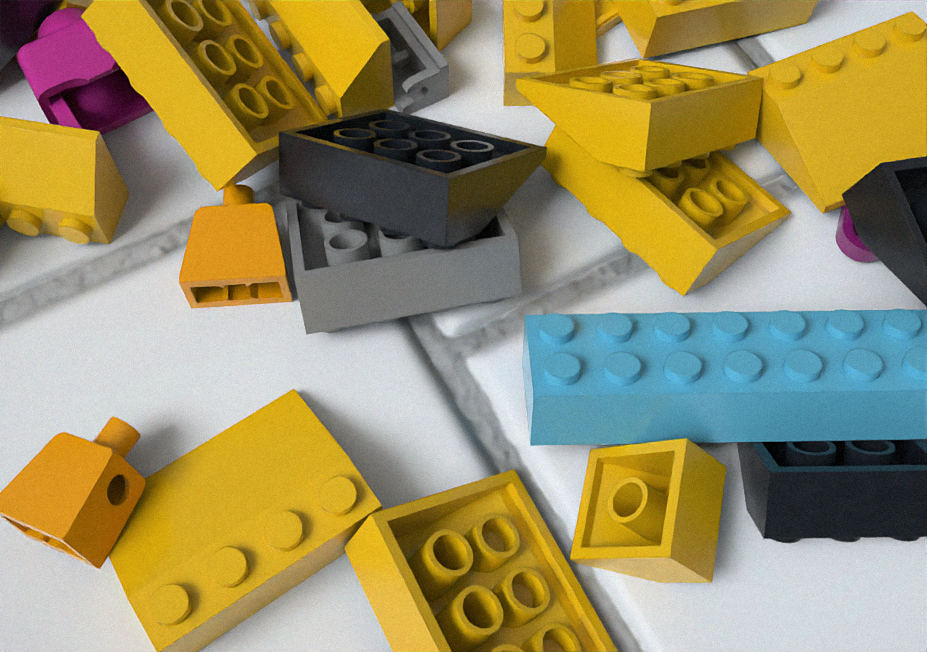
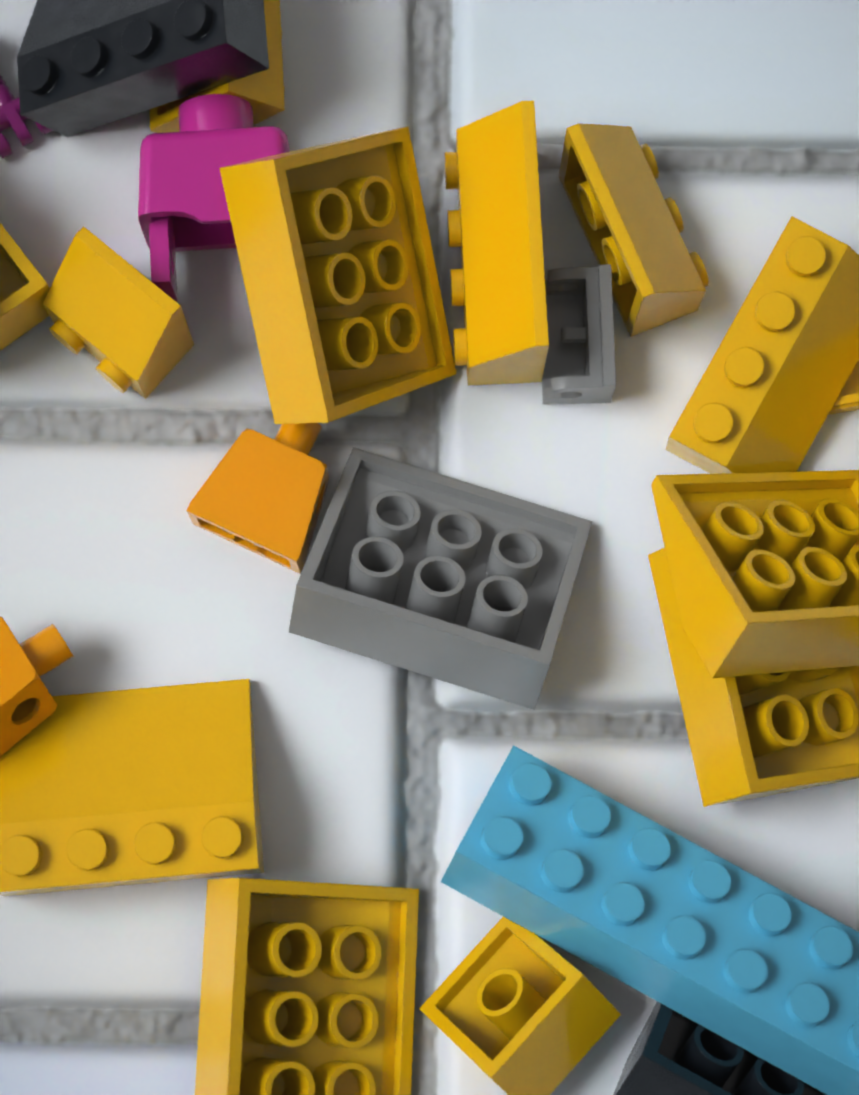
camera: 30 degrees right, 15 degrees up
(405, 173) = (489, 508): black slope -> none

